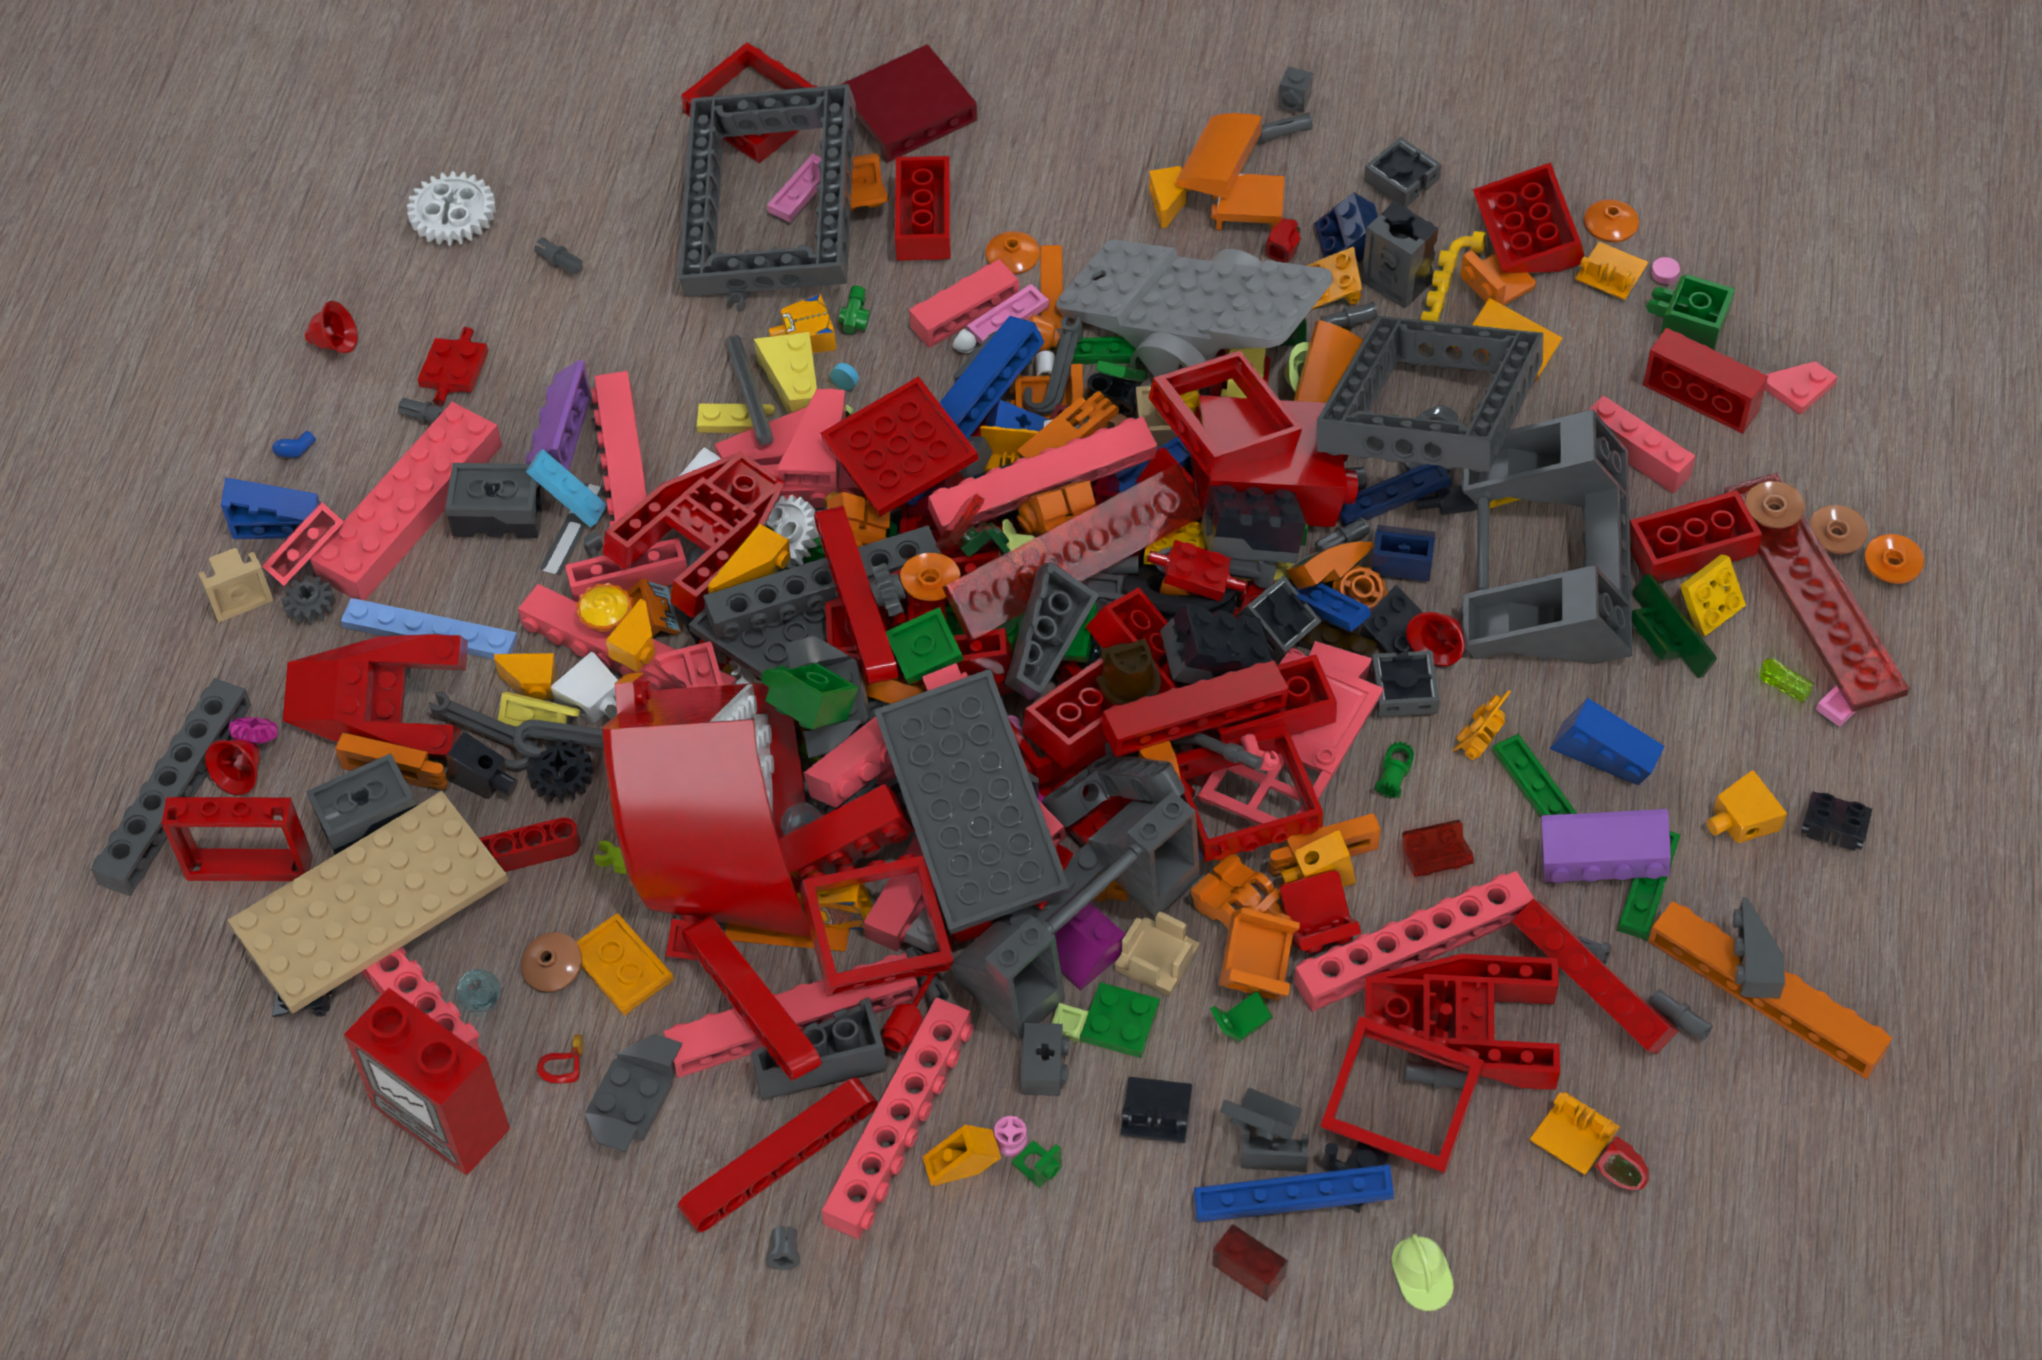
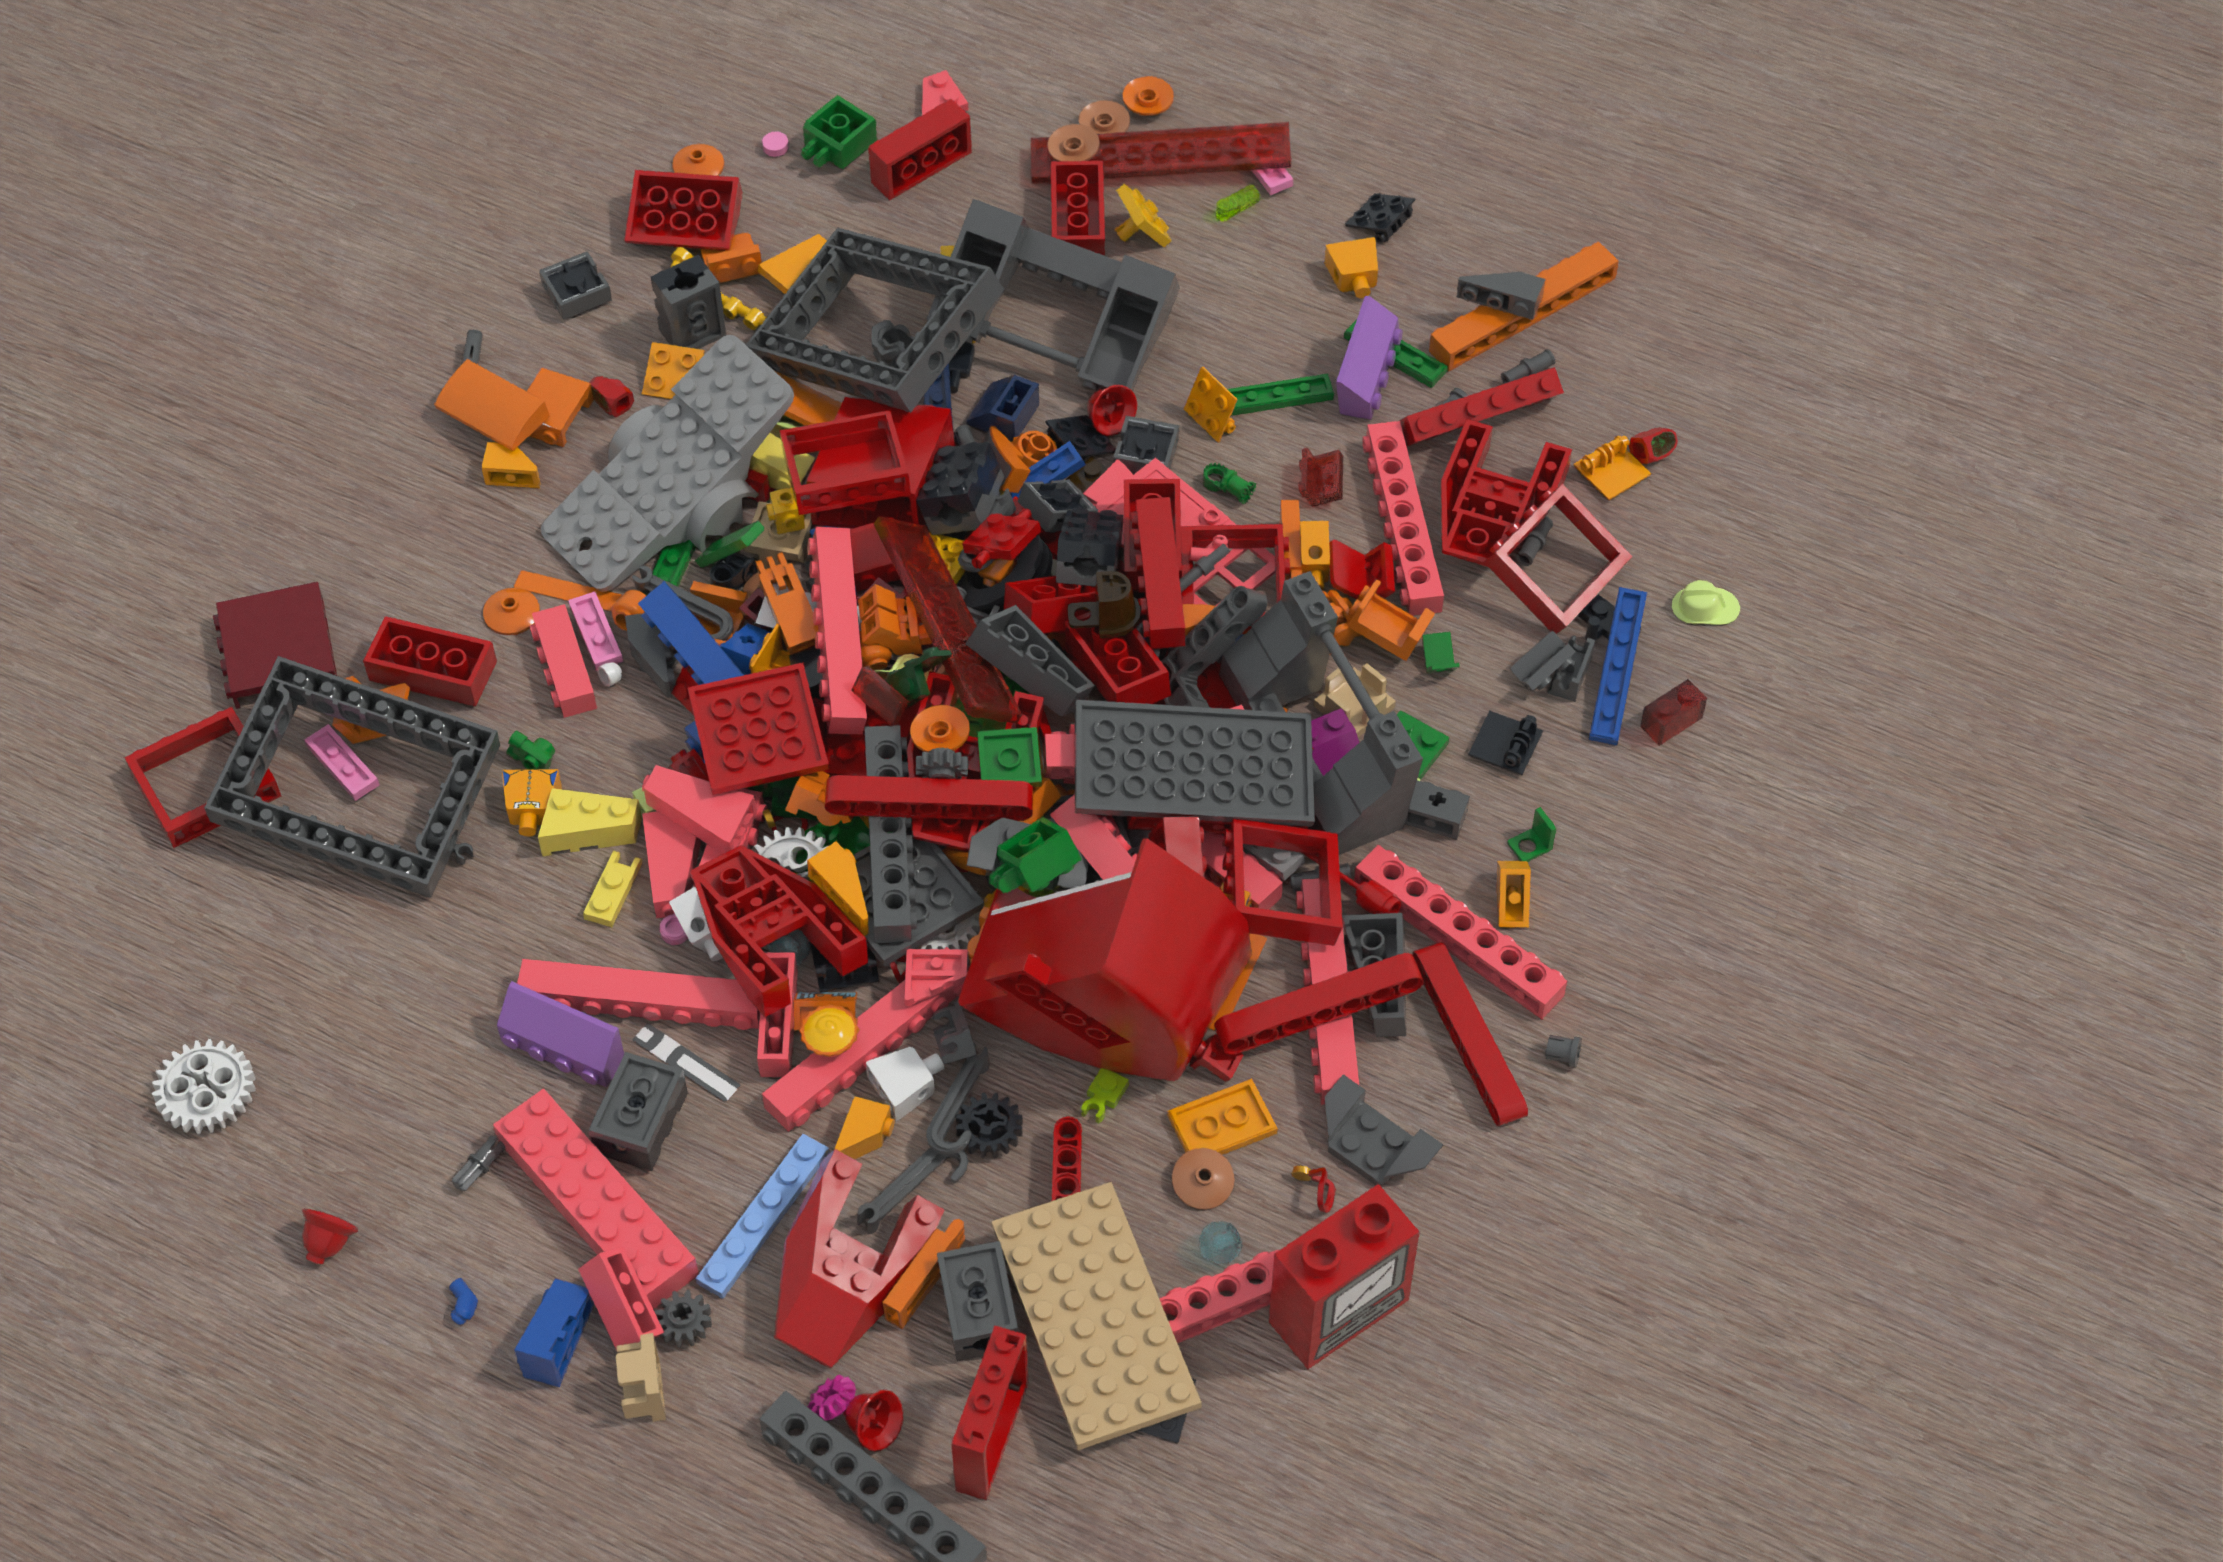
camera: 75 degrees left, 0 degrees up
(453, 365) = (424, 1128): red plate -> none
(478, 768) = (965, 1191): black torso -> none
(519, 708) = (910, 1135): light yellow hinge -> none
(559, 256) = (324, 997): dark grey axle -> none
(566, 488) = (655, 1040): medium azure plate -> none
(592, 543) = (719, 1048): dark grey hand -> none
(632, 639) = (877, 1013): light orange slope -> none
(749, 390) = (595, 859): dark grey axle -> none
(844, 376) = (608, 780): medium azure tile -> none
(1009, 1128) = (1499, 846): bright pink wheel -> none
(1295, 89) = (432, 334): dark grey brick -> none
(1346, 226) = (624, 344): dark blue slope -> none
(1607, 743) = (1258, 332): blue wedge -> none
(1611, 270) = (761, 178): light orange hinge -> none
(1647, 448) = (944, 222): coral brick -> none
(1668, 629) = (1167, 254): dark green bracket -> none

